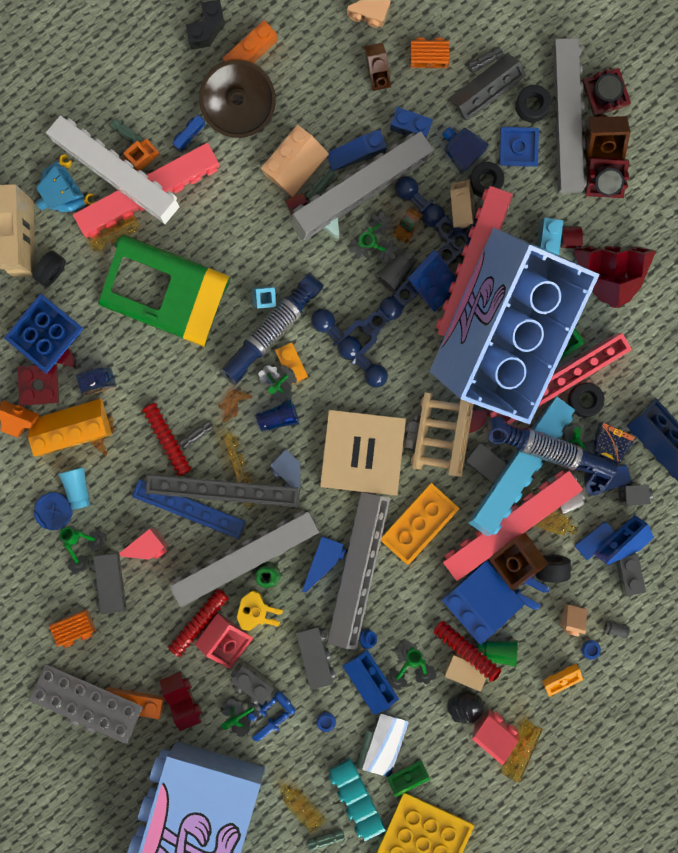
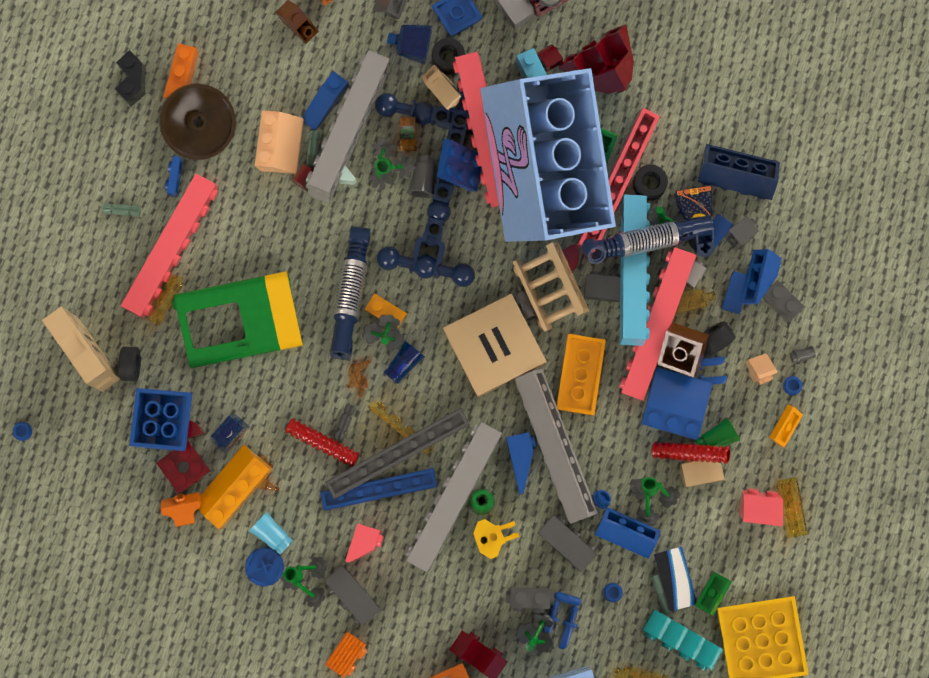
camera: 30 degrees left, 5 degrees down
(59, 189) = (96, 292): dark azure torso -> none
(112, 169) = (130, 246): white brick -> none
(141, 154) = (144, 223): orange brick -> none
(198, 622) = (449, 580): red piece -> none
(223, 641) = (481, 580): coral slope -> none
(263, 297) = (326, 270): medium azure brick -> none
(288, 468) = (439, 400): sand blue slope -> none
(407, 122) = (352, 50): blue brick -> none
(465, 707) = (721, 501): black hair -> none

